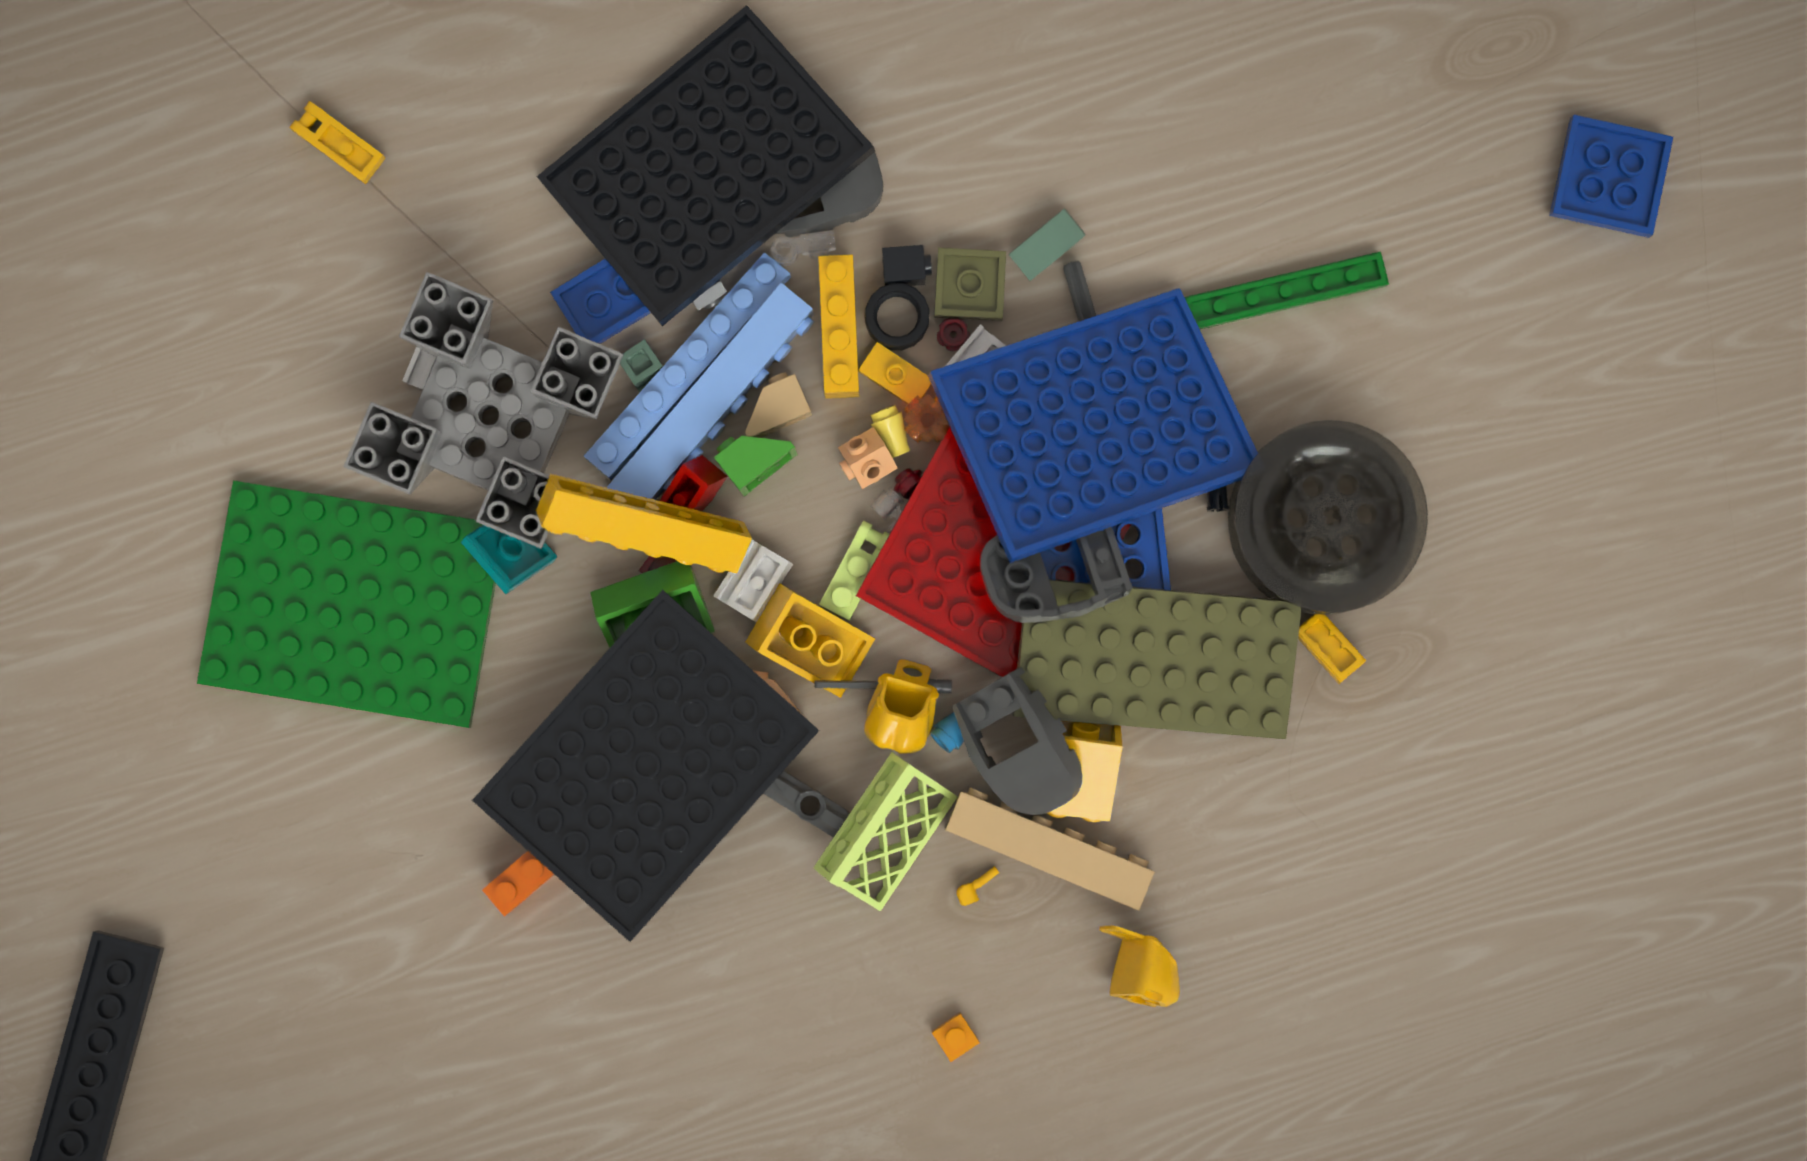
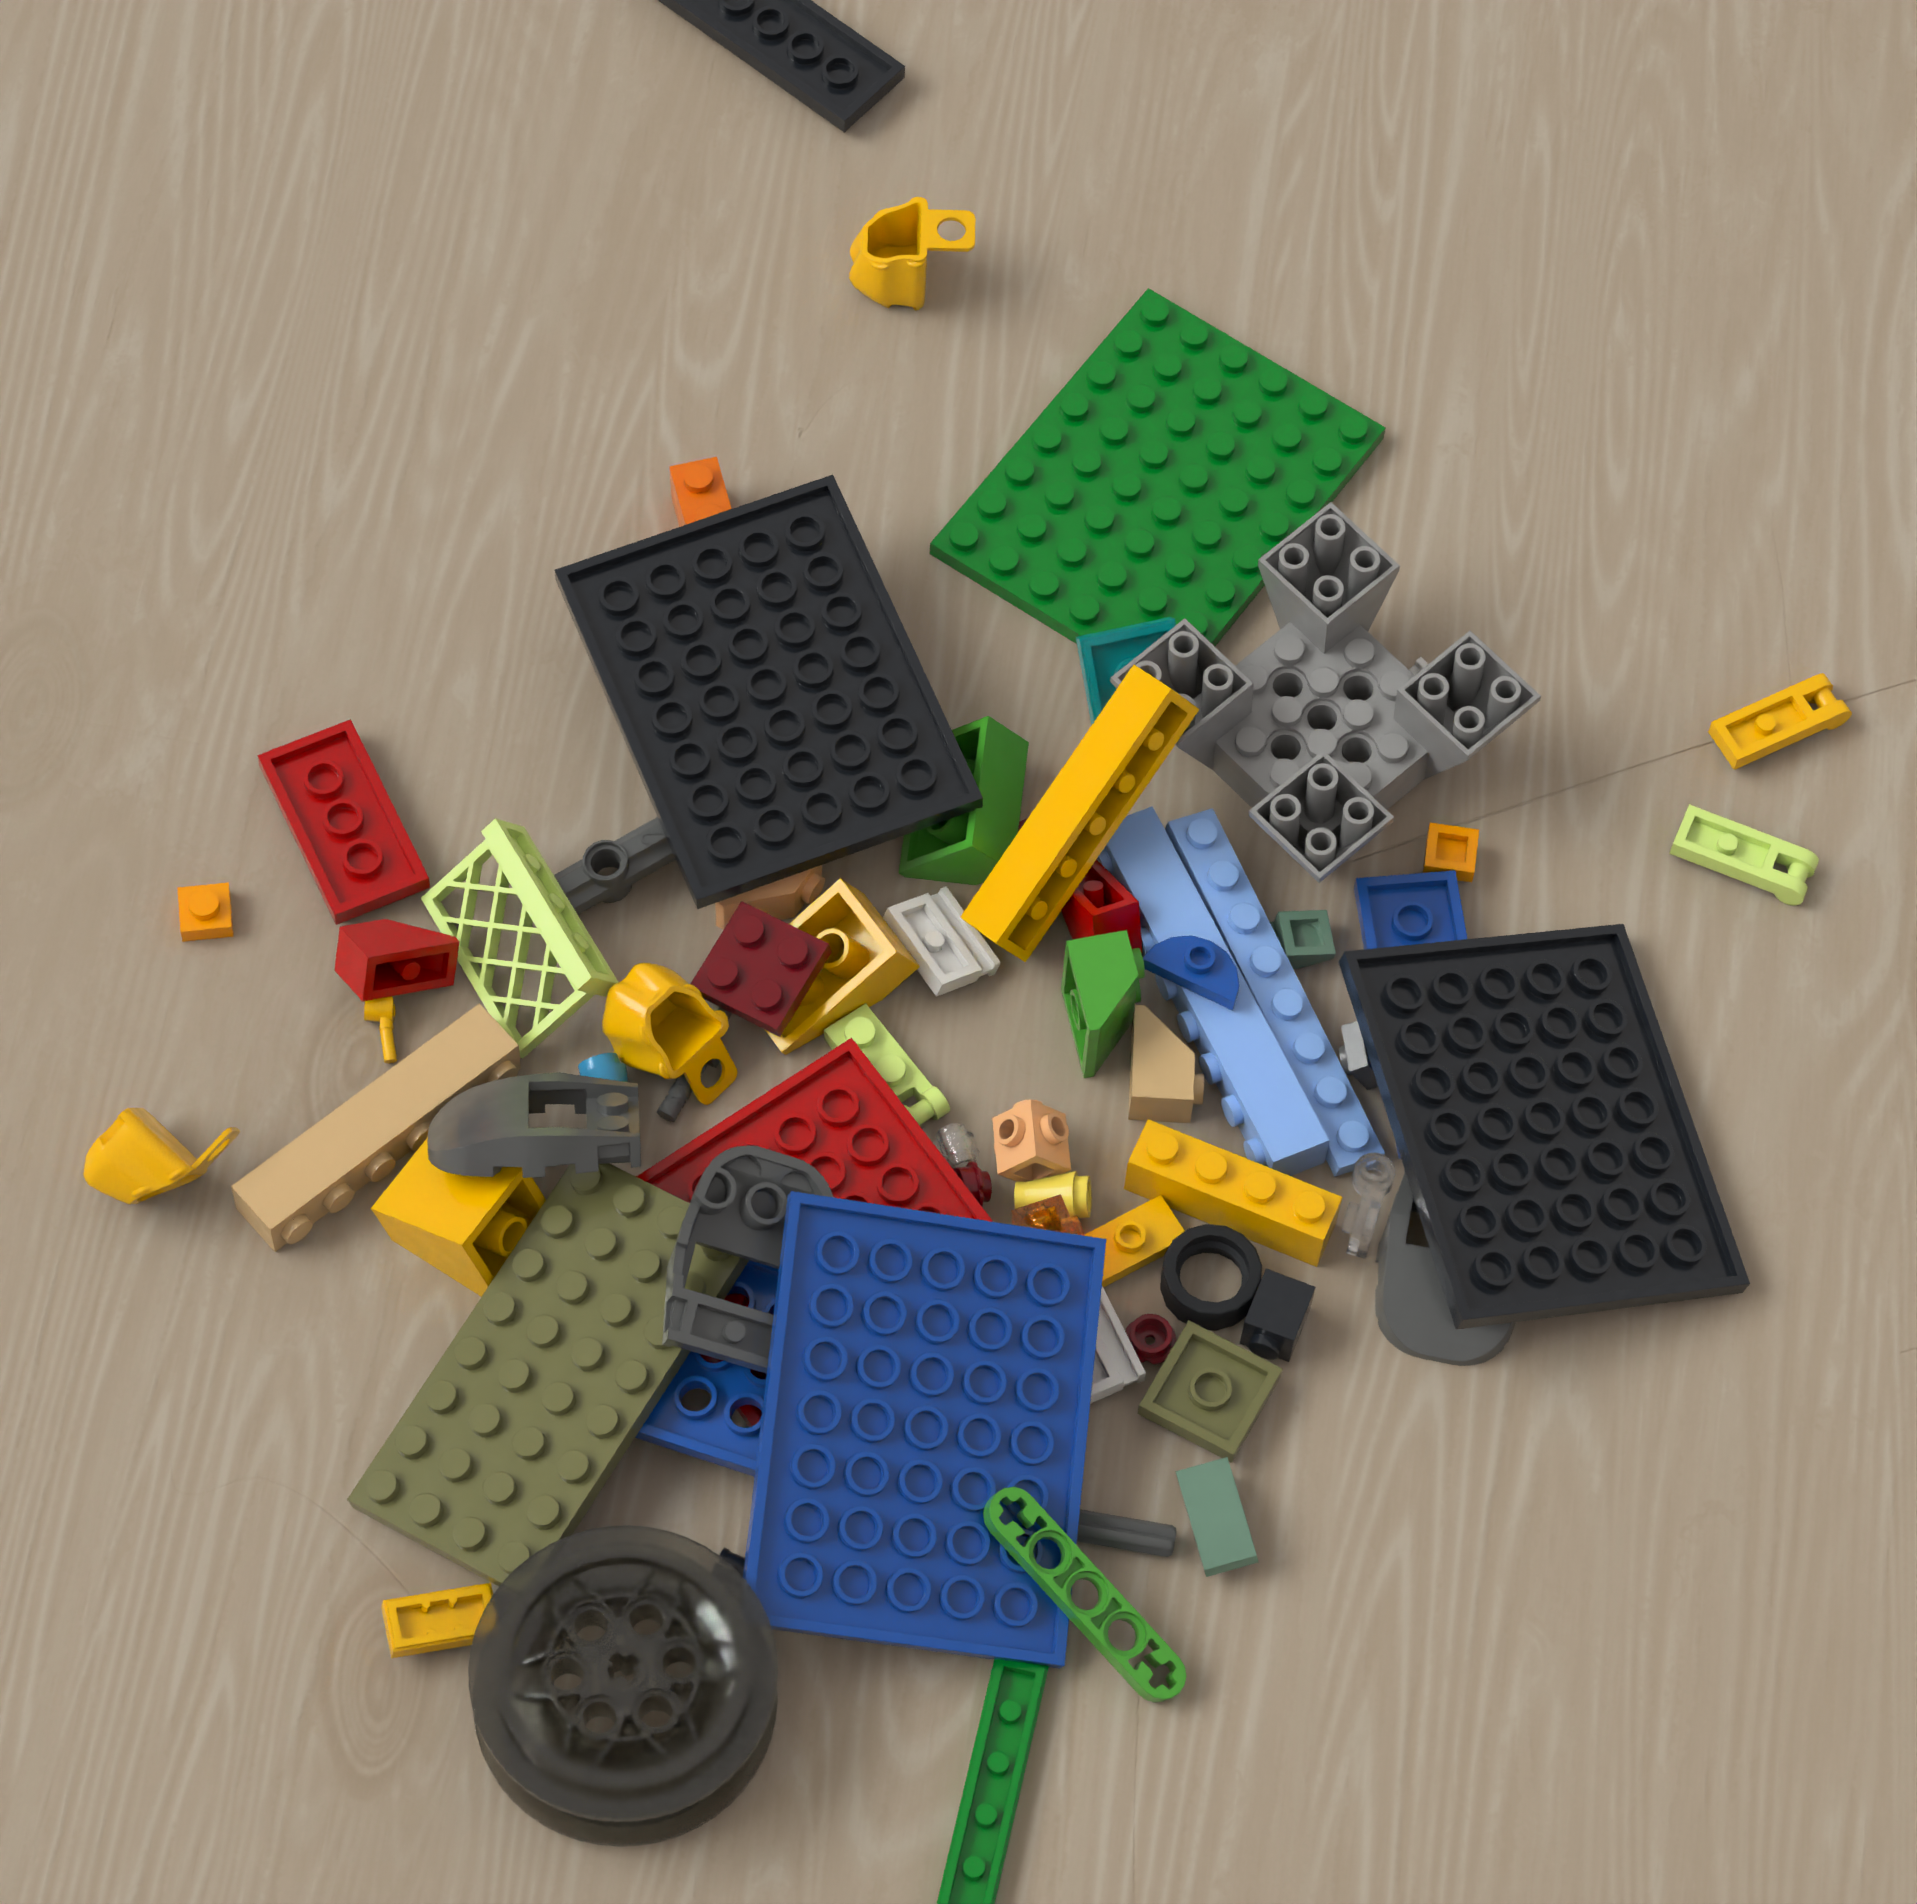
camera: 115 degrees right, 25 degrees down
(252, 857) = (893, 250): none -> yellow piece
(447, 127) = (1744, 854): none -> yellowish green plate
(535, 302) = (1450, 850): none -> light orange plate
(705, 410) = (1197, 967): none -> blue plate
(837, 673) = (761, 968): none -> dark red plate
(854, 987) = (343, 822): none -> red plate
(937, 901) = (394, 958): none -> red slope
(1139, 307) = (1110, 1605): none -> bright green beam

